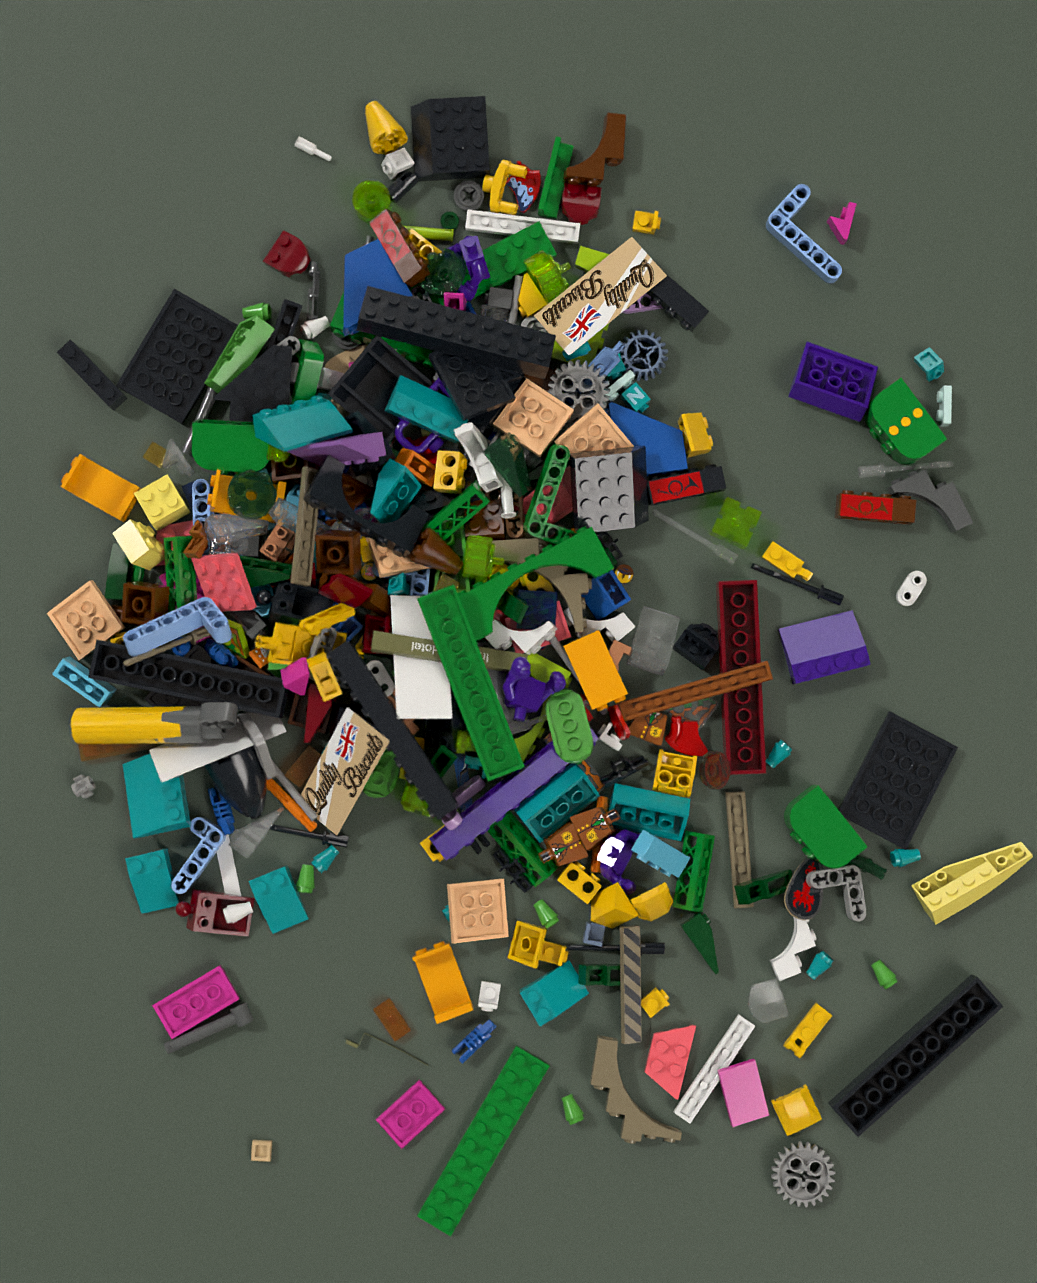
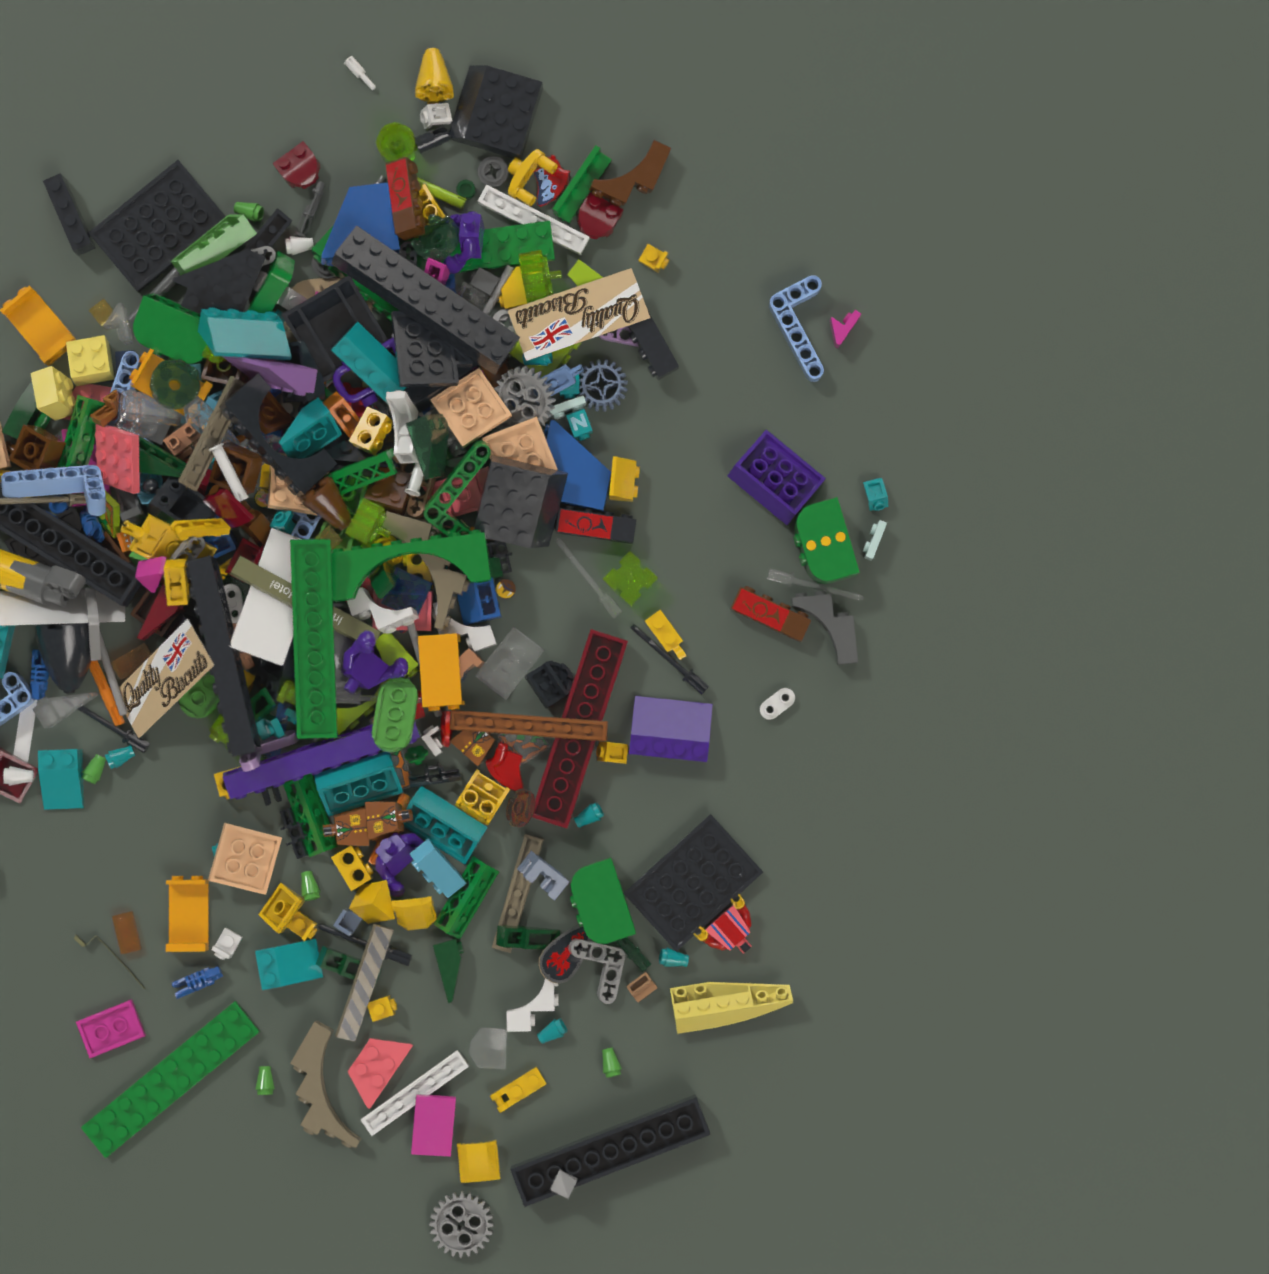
camera: 25 degrees right, 0 degrees up
(337, 559) = (229, 472): none -> white pin
(455, 779) = (269, 727): none -> teal bracket
(599, 756) = (416, 755): none -> green plant
(761, 820) = (554, 880): none -> sand blue panel
(777, 688) = (612, 752): none -> yellow bracket
(886, 894) = (642, 987): none -> medium nougat piece
(887, 1102) = (563, 1184): none -> light grey slope
(946, 810) = (729, 928): none -> torso

